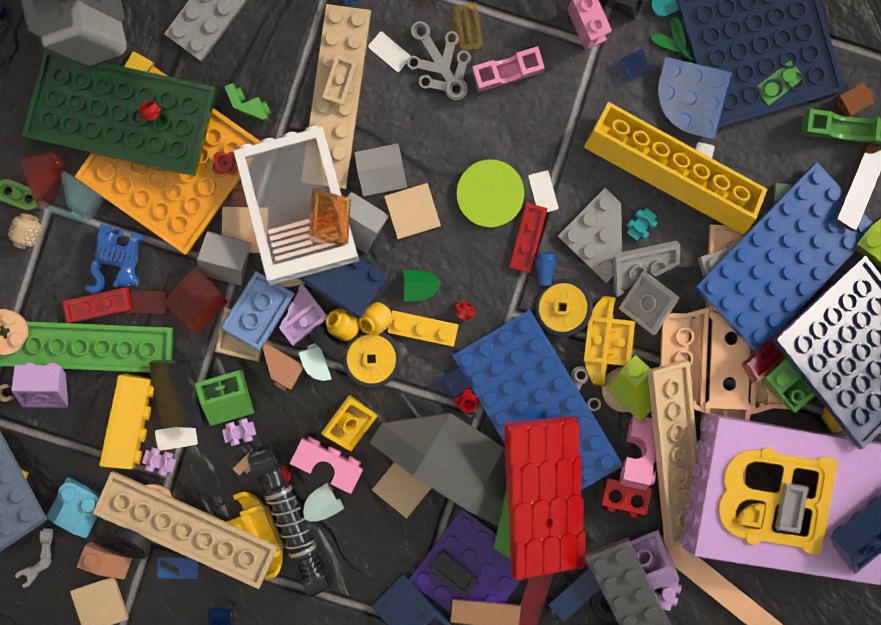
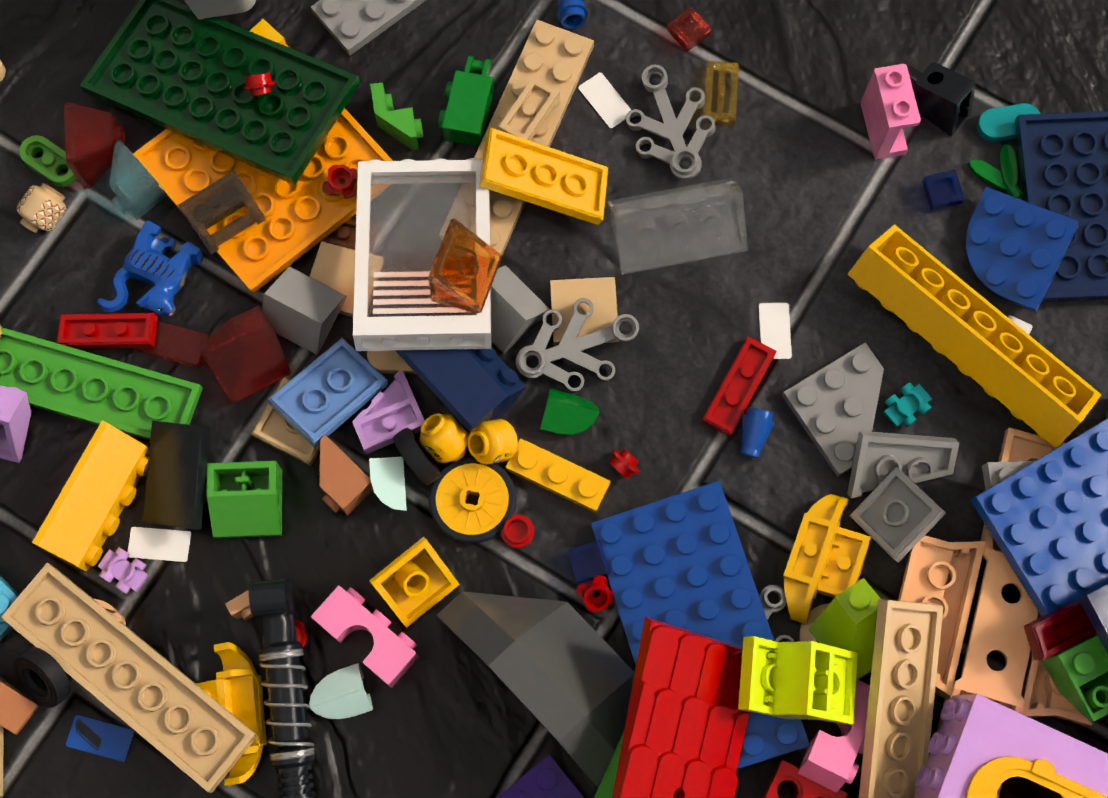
camera: 10 degrees right, 15 degrees down
(144, 201) = (217, 203): none -> clear smoke plate
(243, 430) = (253, 557): lavender piece -> none
(295, 81) = (468, 104): none -> green brick
(362, 126) = (544, 176): none -> yellow tile
(380, 170) = (553, 247): light grey slope -> none
(401, 489) = (469, 699): tan tile -> none
(406, 372) = (518, 531): none -> red plate
(411, 240) = (571, 348): none -> light grey plant
(461, 135) = (678, 225): none -> clear slope
(490, 193) = (699, 313): lime tile -> none
(515, 68) = (786, 153): bright pink arch -> none
(578, 308) = (767, 514): yellow wheel -> none
(607, 432) = (798, 680): none -> neon yellow bracket

